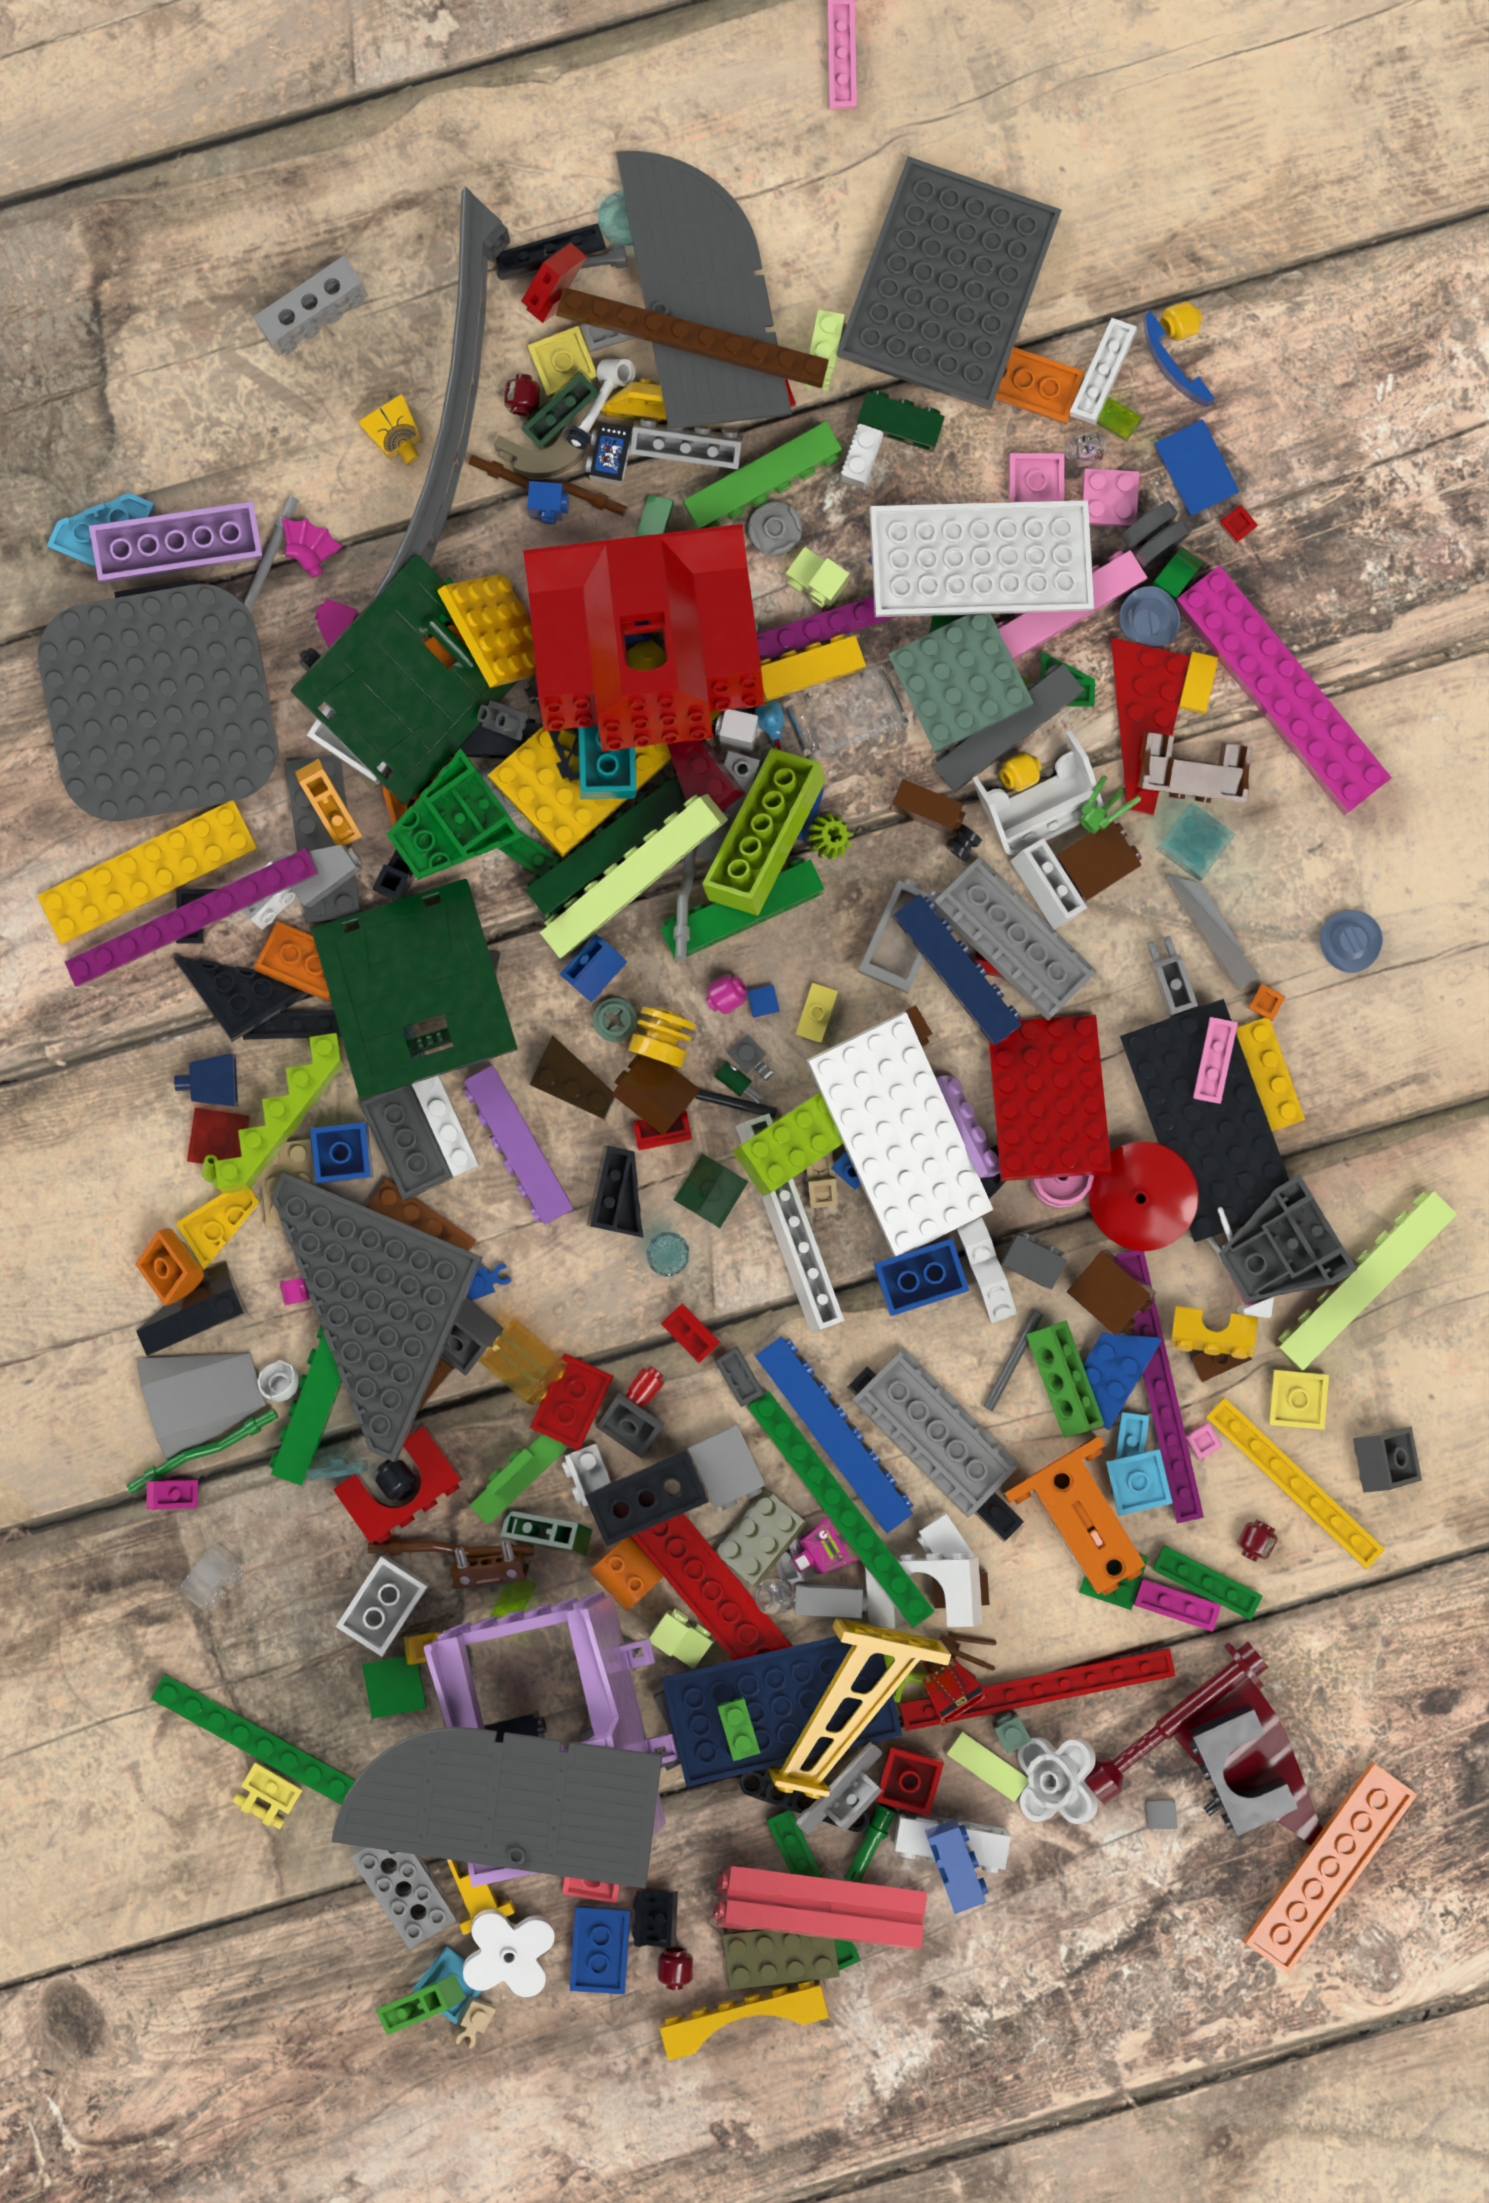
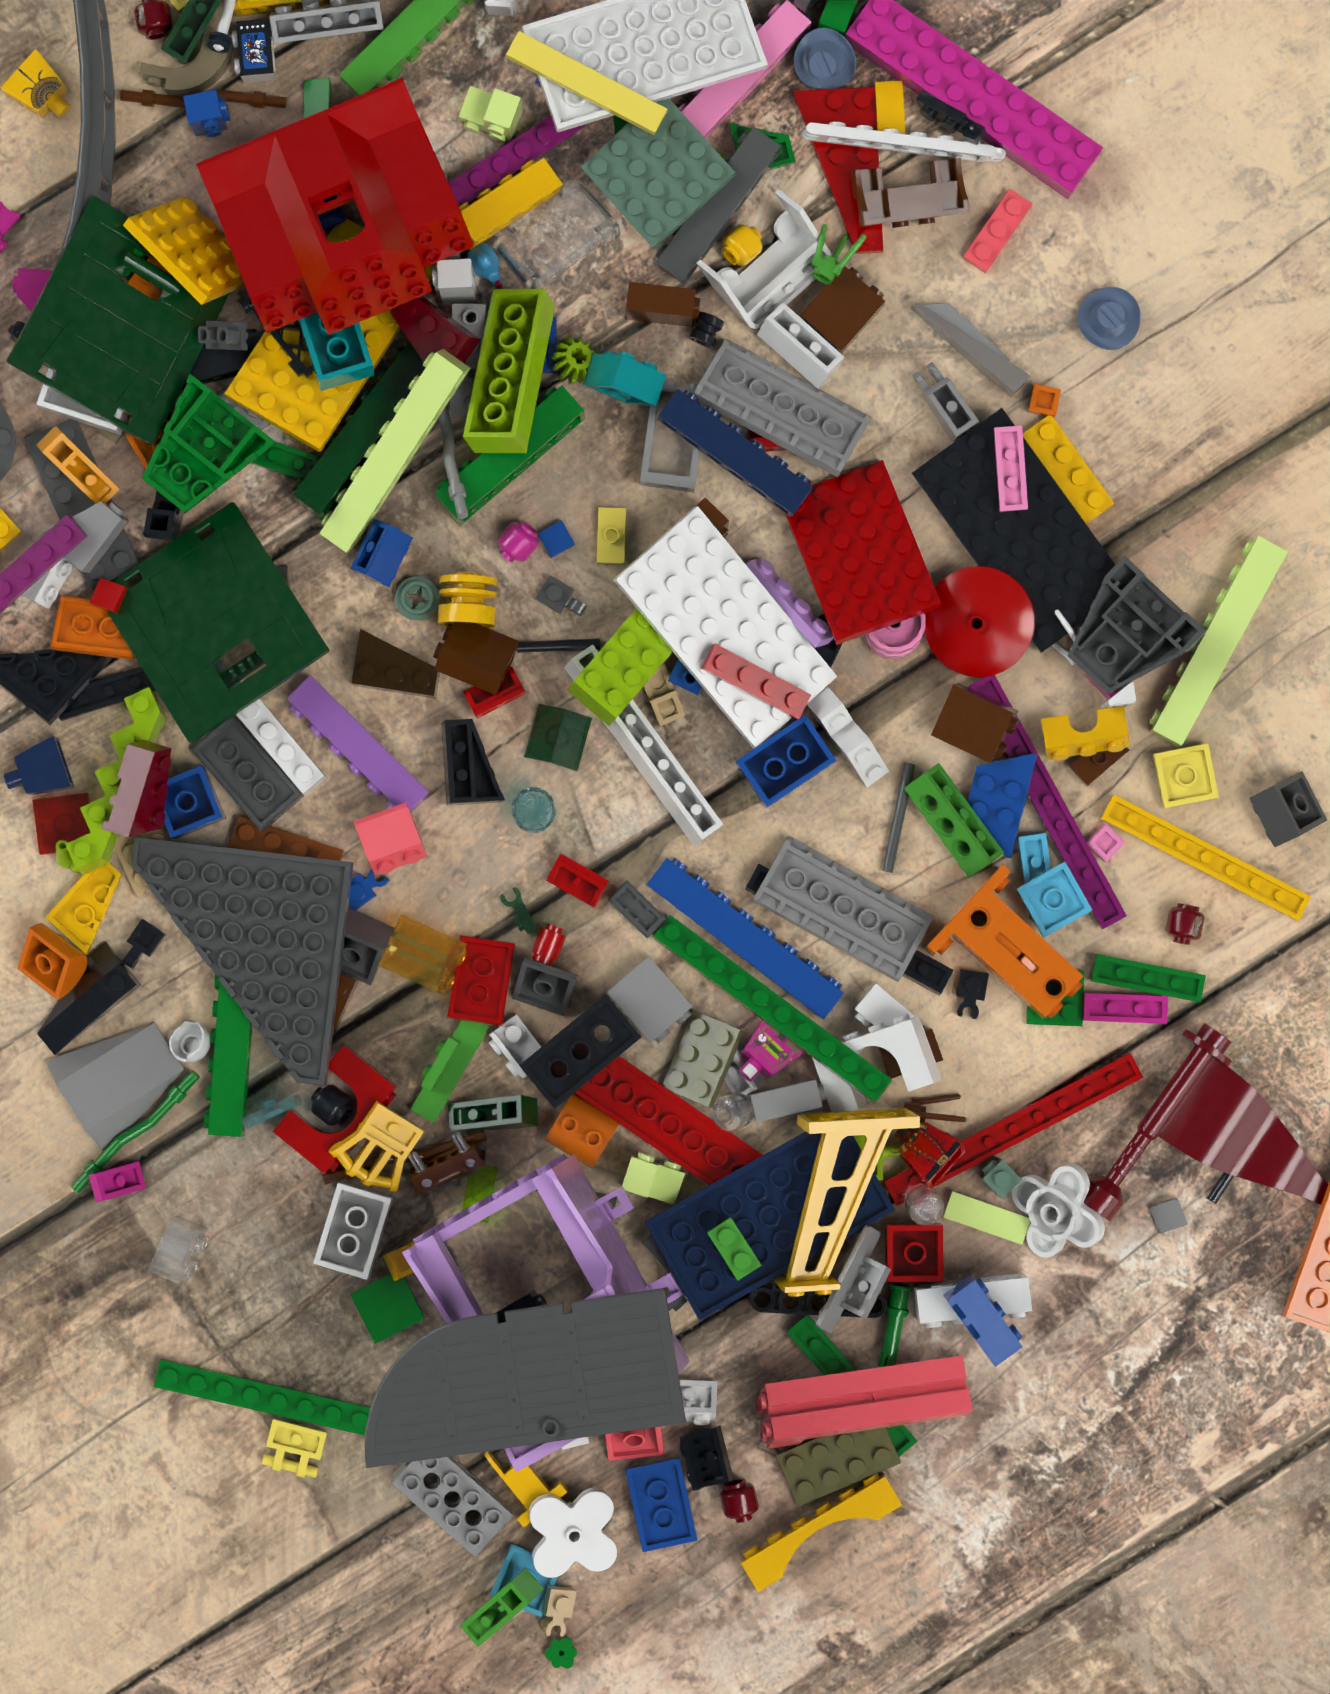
camera: 20 degrees left, 0 degrees up
(263, 1272) = (144, 940): none -> black plate
(294, 1291) = (180, 950): dark pink leg -> none
(301, 1132) = (142, 790): none -> wedge
(322, 934) = (108, 595): none -> red tile
(442, 1521) = (389, 1132): none -> yellow plate
(466, 2071) = (565, 1660): none -> green plant
(524, 1243) = (390, 839): none -> coral slope
(628, 1355) = (523, 918): none -> clear green plate
(665, 1862) = (699, 1401): none -> white bracket
(737, 1081) = (553, 624): dark green piece -> none
(779, 536) = (440, 86): light grey tile -> none
(872, 868) = (625, 378): none -> teal brick
(914, 1194) = (756, 681): none -> plate
(916, 578) = (586, 83): none -> light yellow tile
(931, 1738) = (924, 1205): none -> clear head
(1033, 1261) = (890, 714): dark grey brick -> none
(1036, 1543) = (972, 987): none -> black plate
(1192, 713) = (892, 140): none -> white hinge
(1195, 841) = (931, 264): clear light blue brick -> none
(1214, 1743) = (1199, 1131): arch -> none
(1254, 707) = (950, 117): none -> black hinge
(1268, 827) = (997, 231): none -> coral plate

